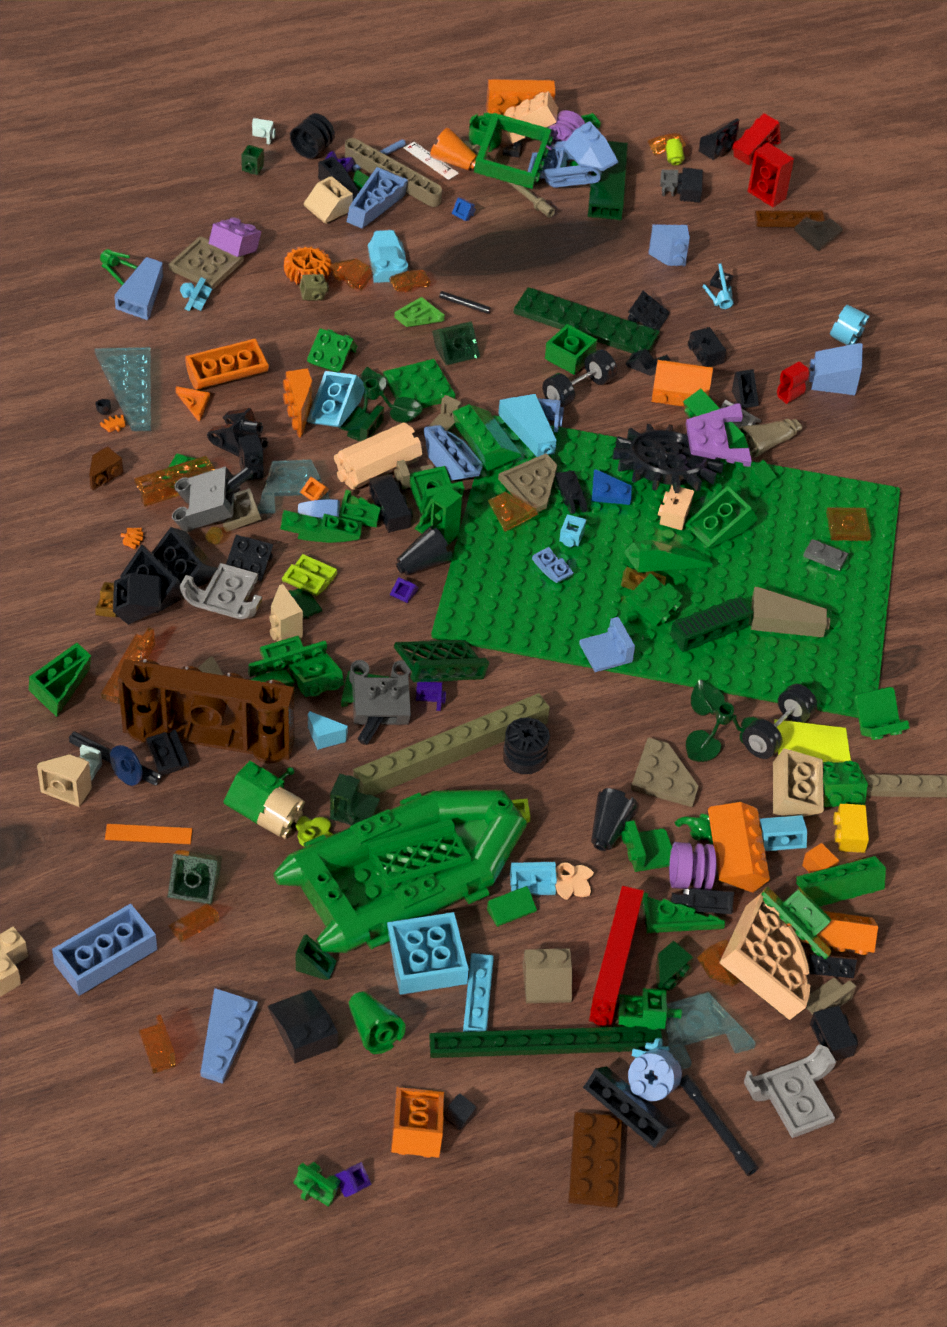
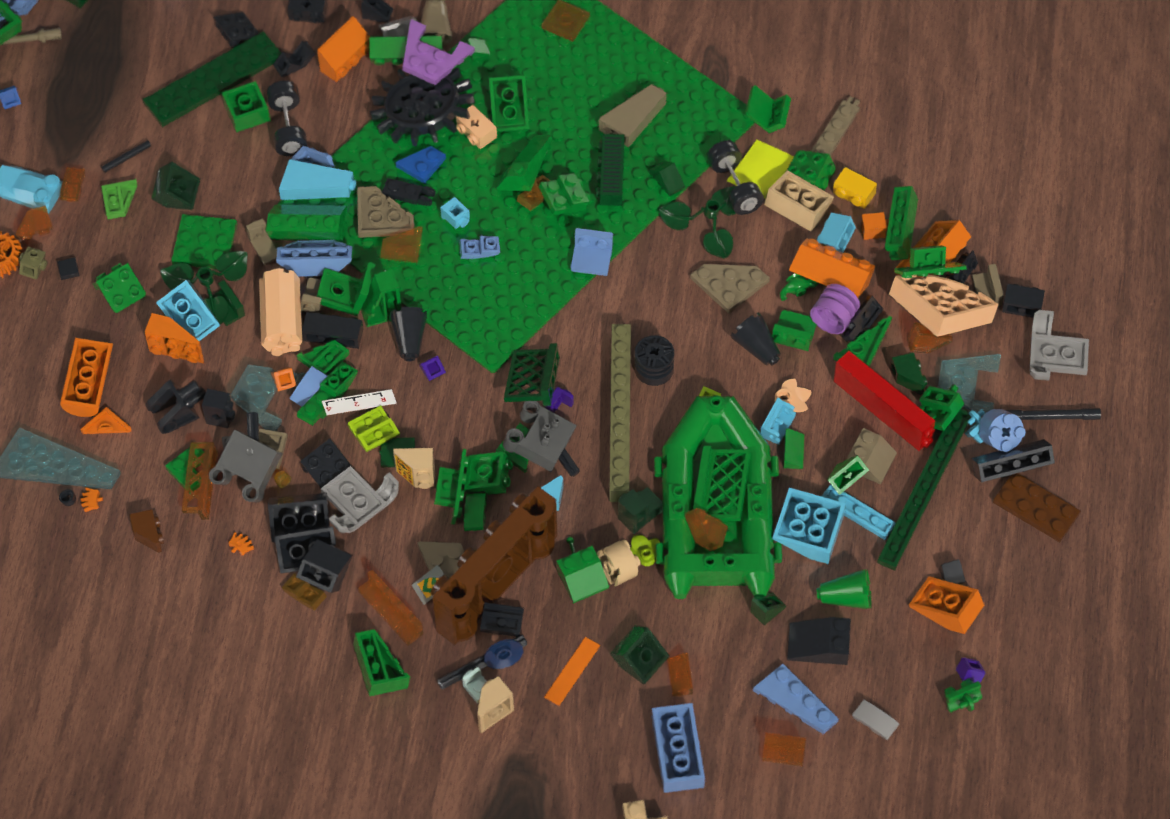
camera: 55 degrees left, 10 degrees up
(239, 1113) = (875, 719): none -> light grey slope
(328, 314) = (68, 268): none -> black tile
(328, 552) = (359, 402): none -> white sticker
(358, 862) = (705, 529): none -> clear orange slope
(505, 959) = (847, 473): none -> green slope
(738, 671) = (668, 177): none -> dark green slope
(825, 555) = (587, 54): dark grey plate -> none

